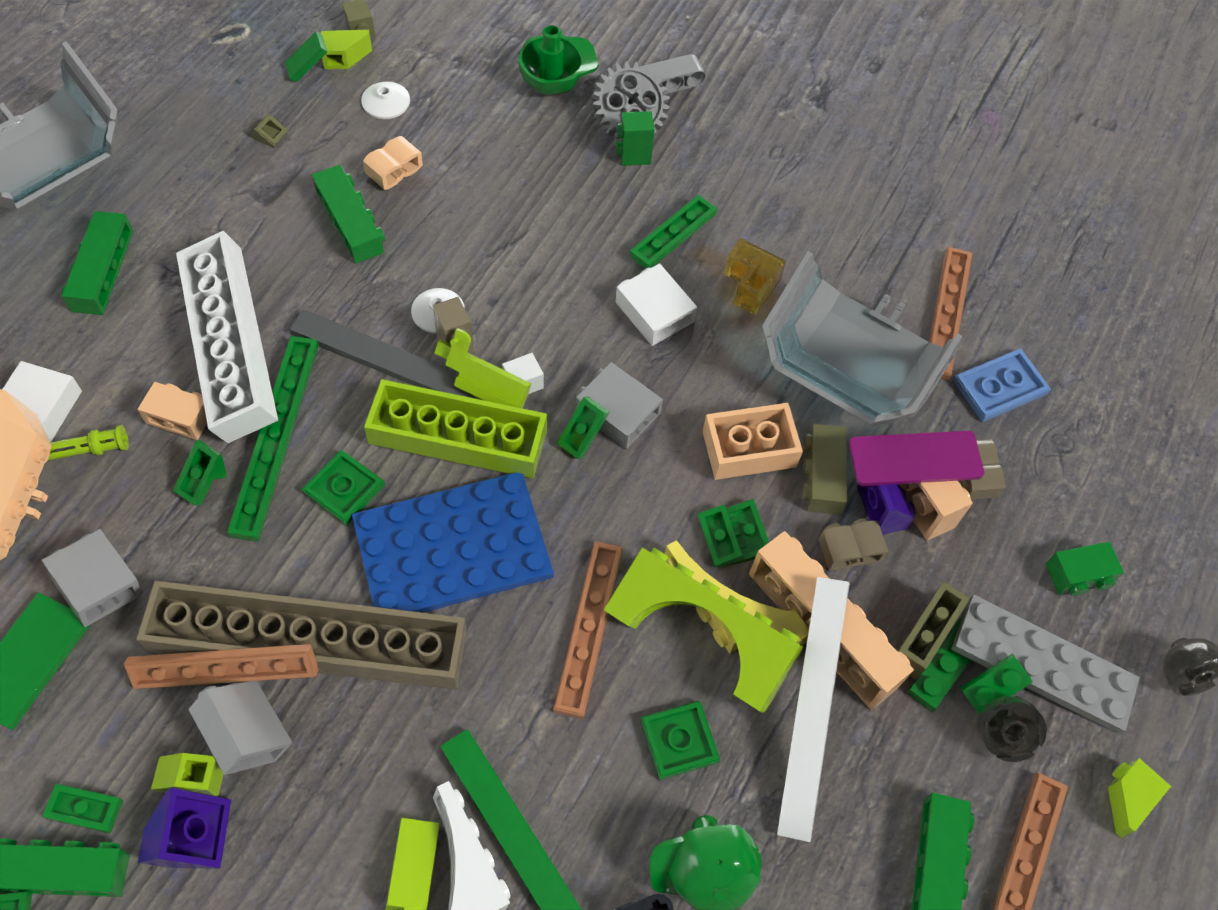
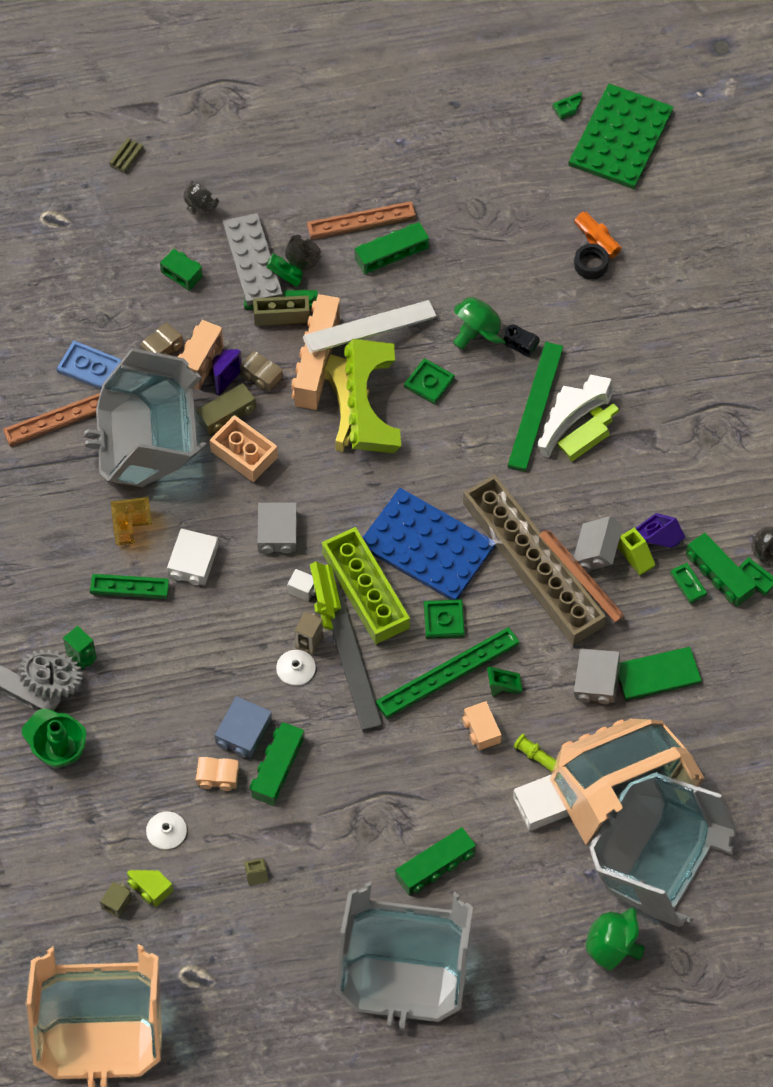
camera: 125 degrees left, 0 degrees up
(226, 338) = (419, 738): white brick -> none
(306, 56) = (182, 893): green tile -> none
(416, 213) = (243, 727): none -> sand blue brick
(583, 427) = (309, 528): green plate -> none
(587, 631) = (411, 455): nougat tile -> none
(733, 533) = (301, 427): green slope -> none
(916, 458) = (200, 355): magenta piece -> none
(1134, 795) = (289, 194): lime slope -> none

